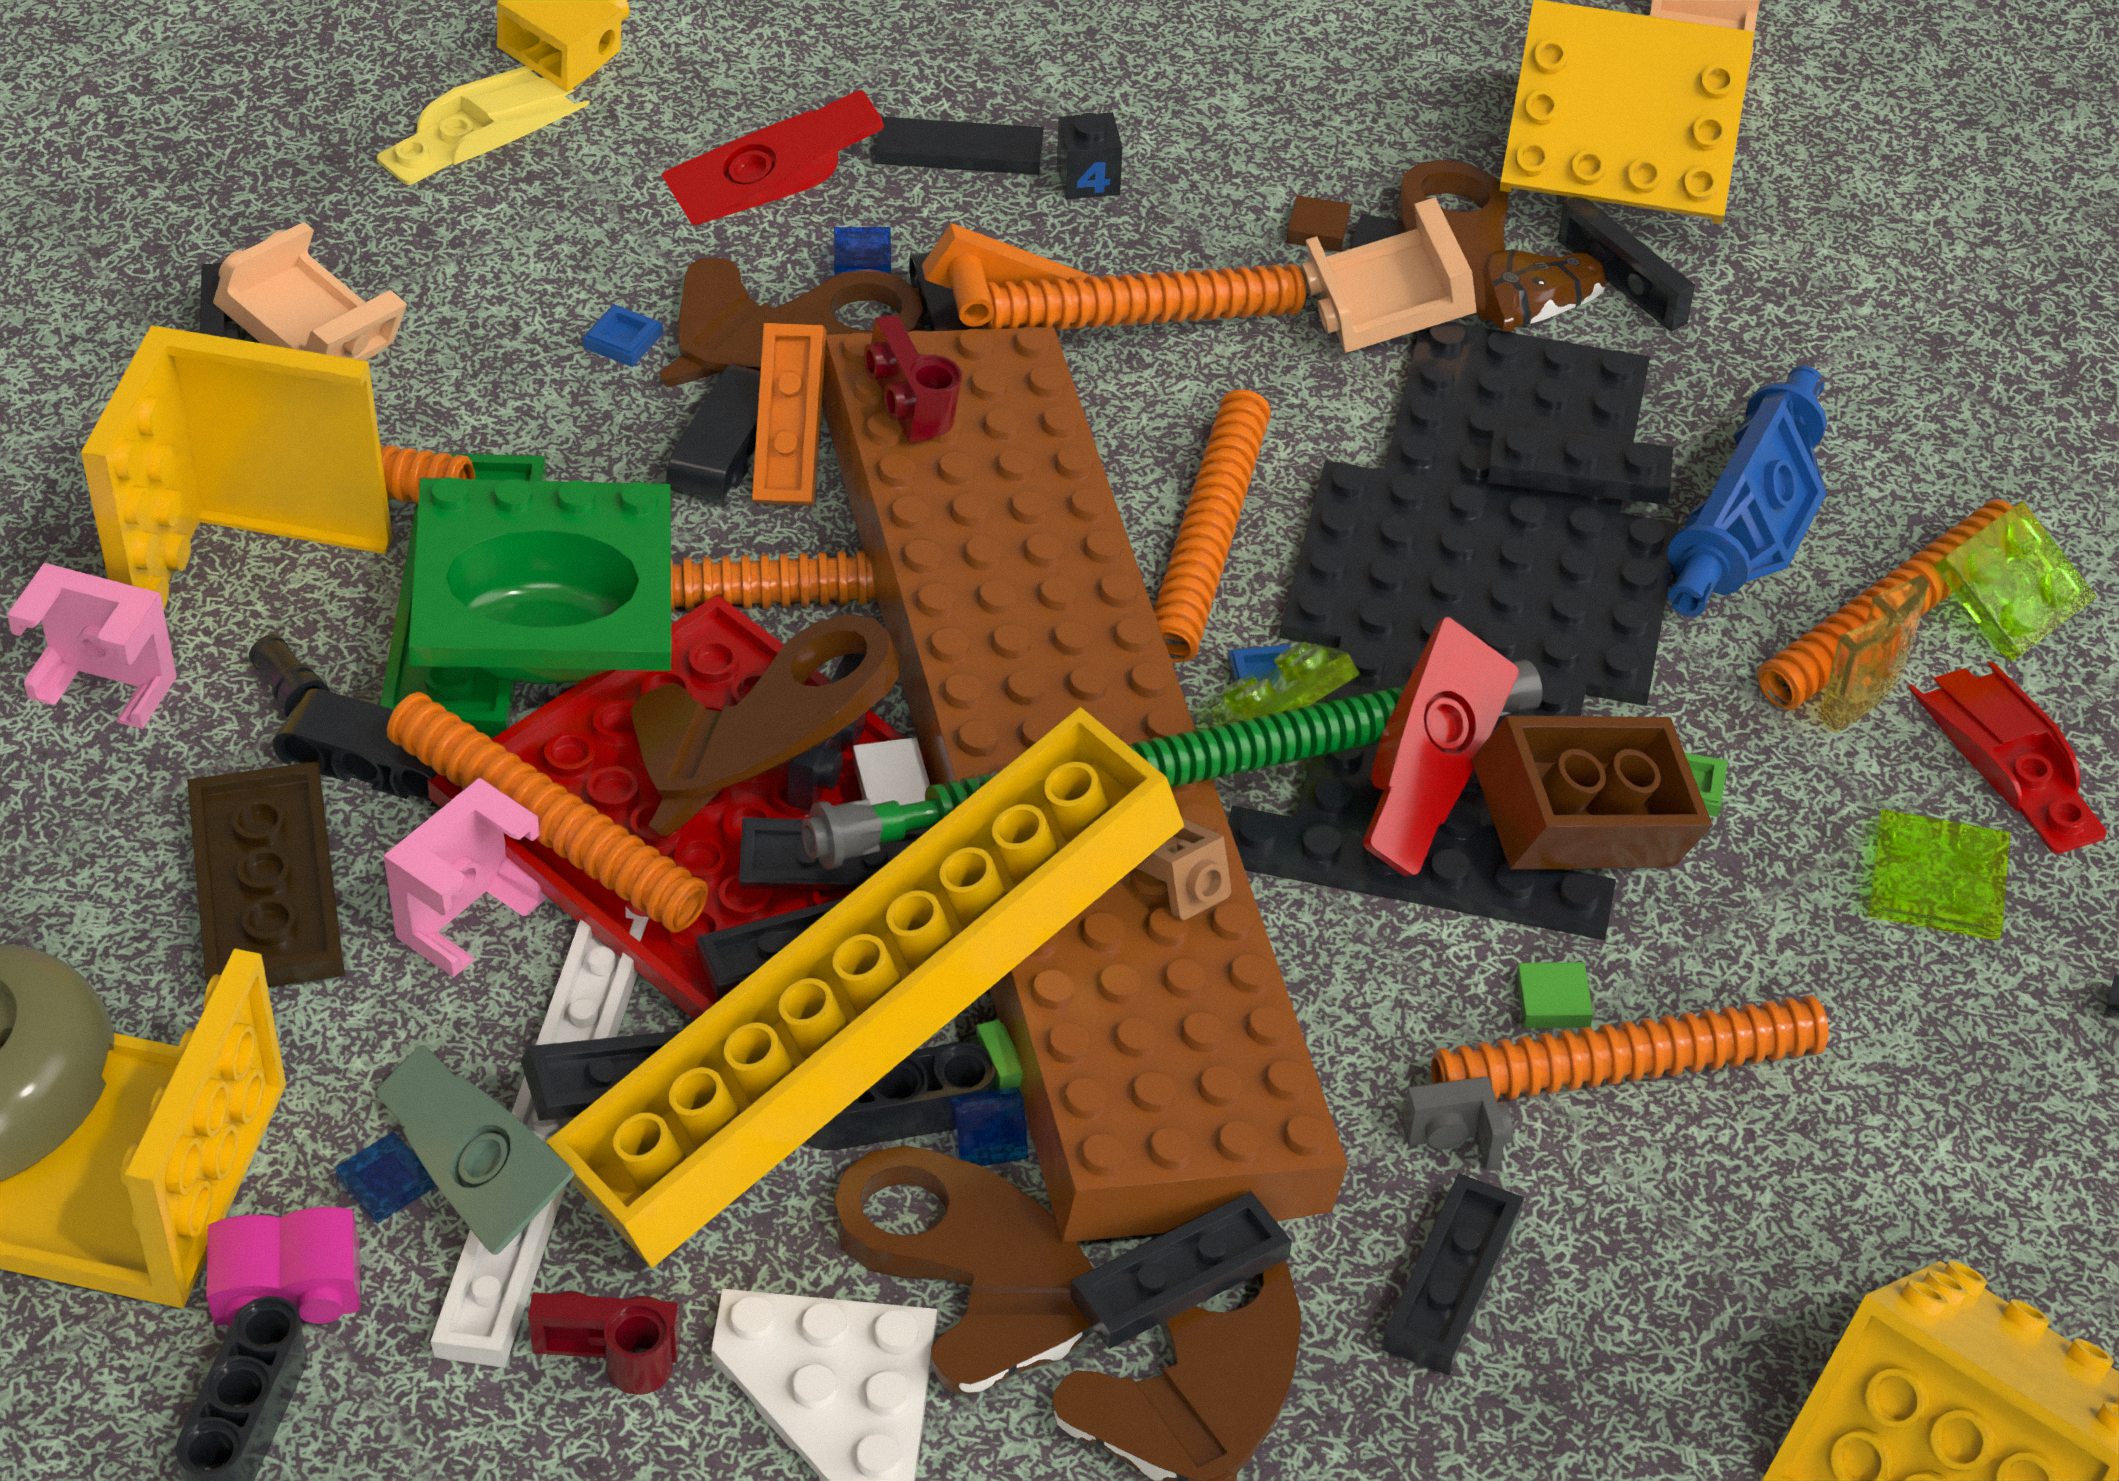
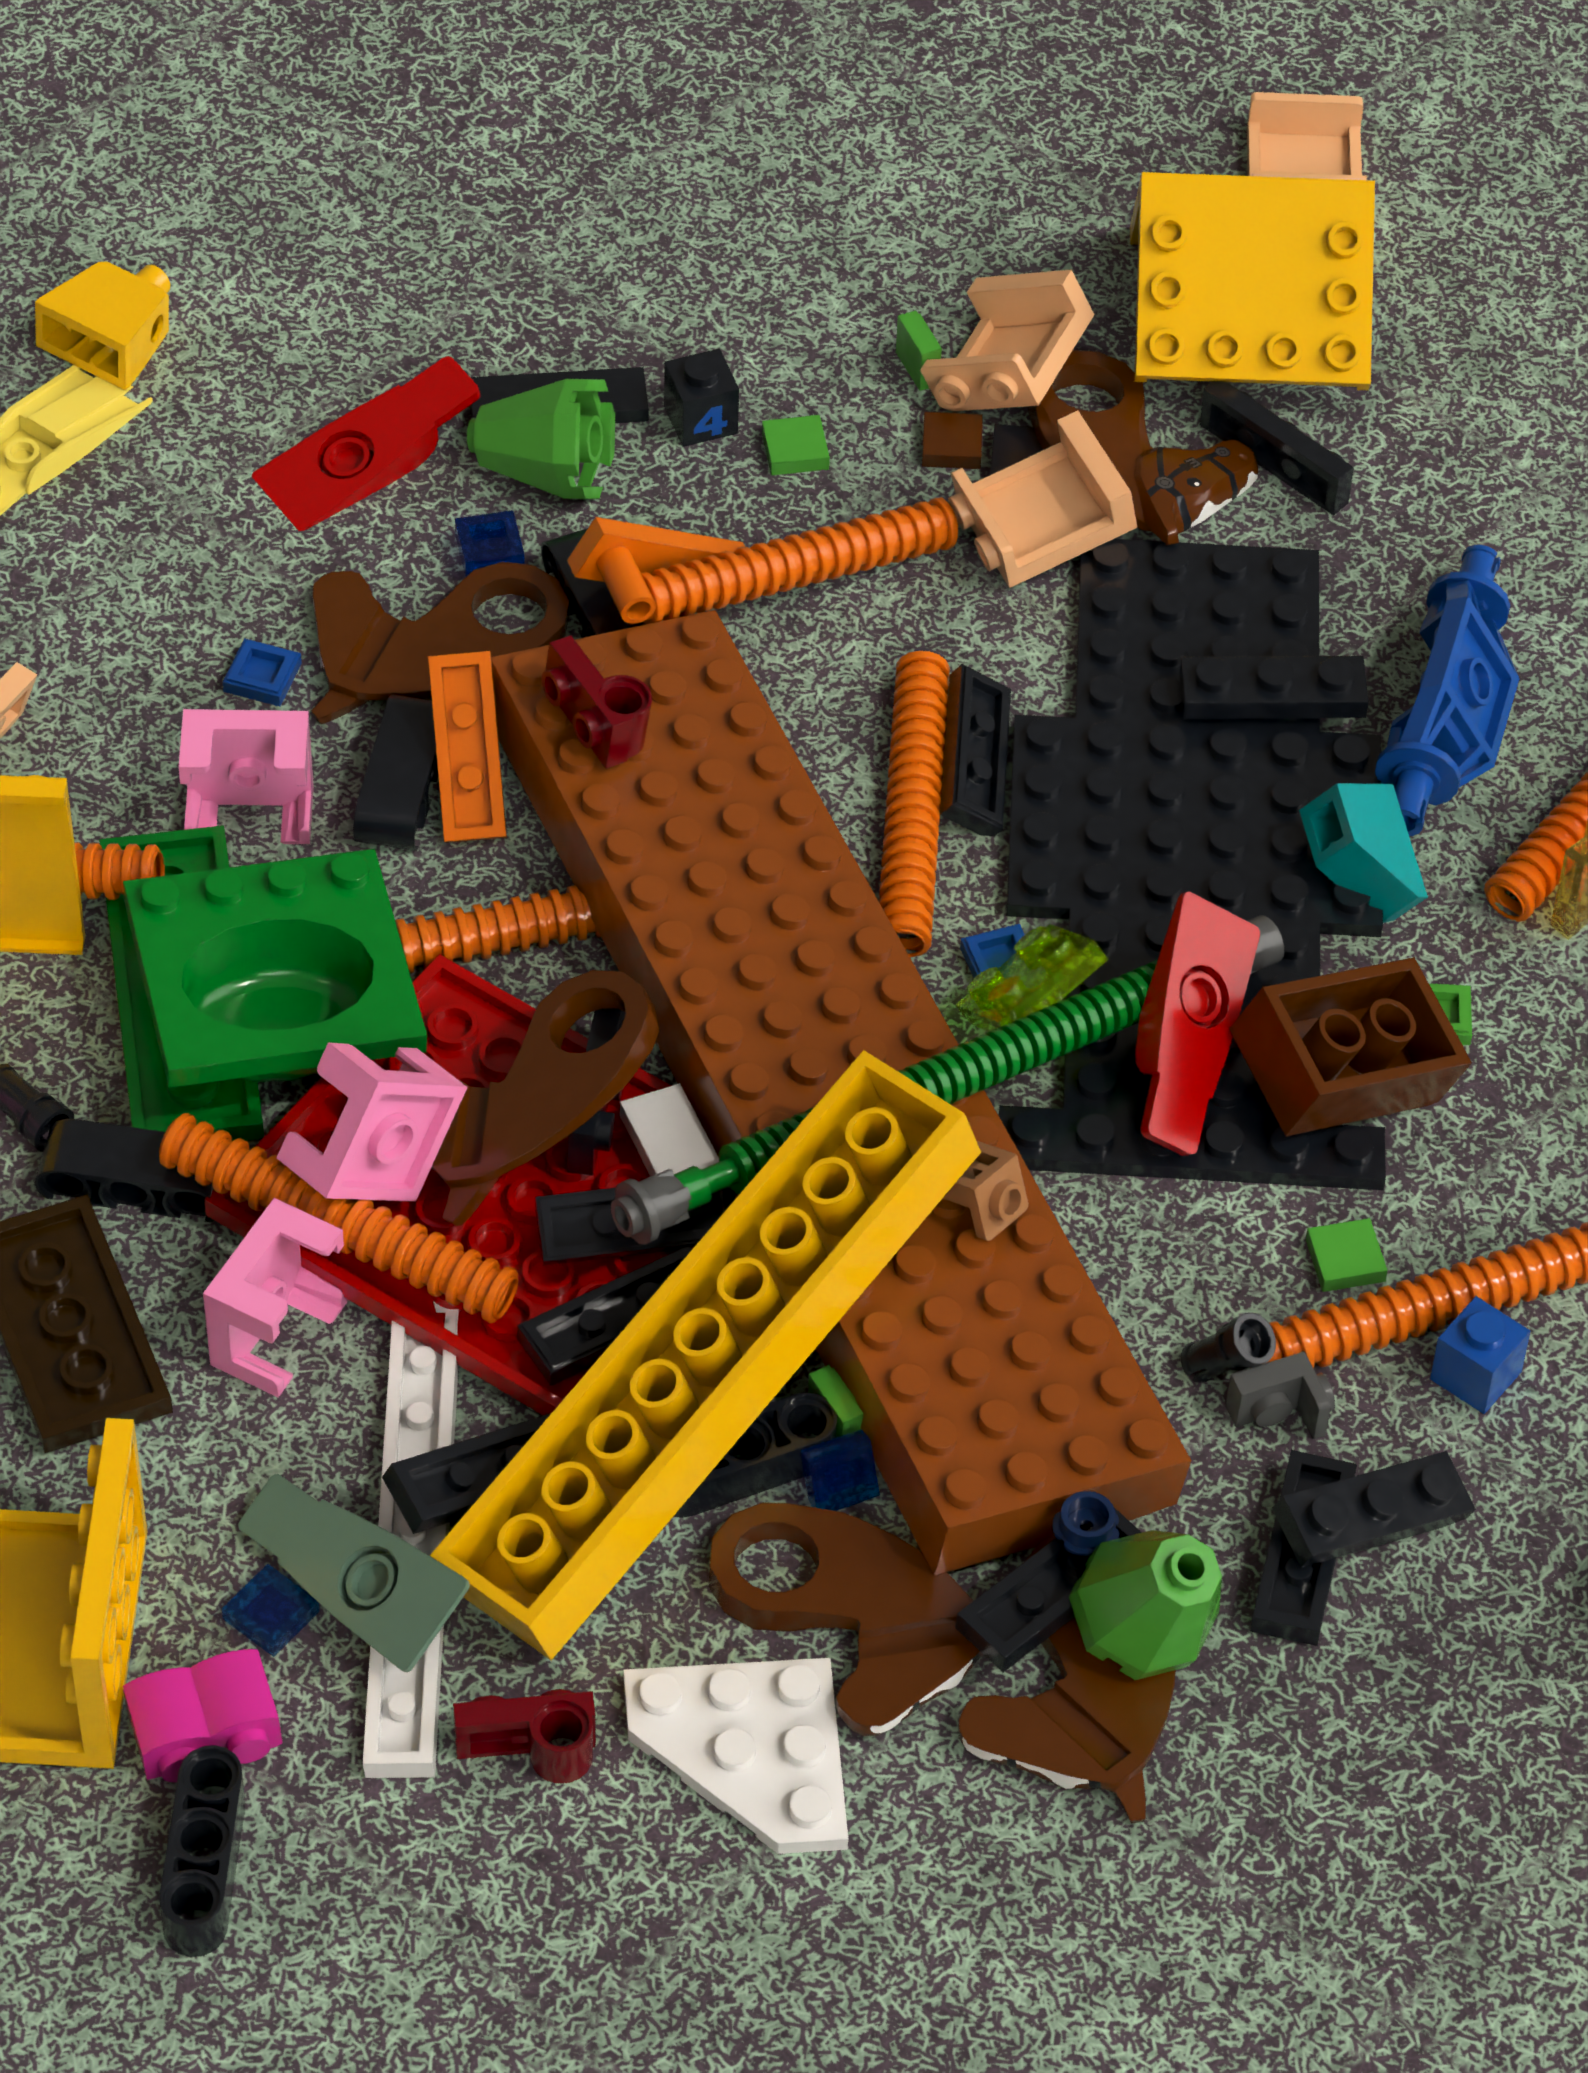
camera: 10 degrees left, 5 degrees up
(577, 401) = (248, 761): none -> bright pink panel
(601, 727) = (385, 1130): none -> bright pink panel
(935, 162) = (546, 435): none -> bright green cone
(1170, 209) = (795, 445): none -> bright green tile
(1227, 1196) = (1090, 1510): none -> dark blue plate
(1271, 1299) = (1148, 1601): none -> bright green cone
(1280, 487) = (975, 751): none -> black tile
(1302, 143) = (915, 345): none -> bright green tile
(1405, 138) = (1018, 344): none -> light nougat panel
(1420, 1060) = (1235, 1346): none -> black pin
(1531, 1243) = (1373, 1509): none -> black plate
(1642, 613) = (1365, 845): none -> teal slope
(1672, 1108) = (1480, 1355): none -> blue brick

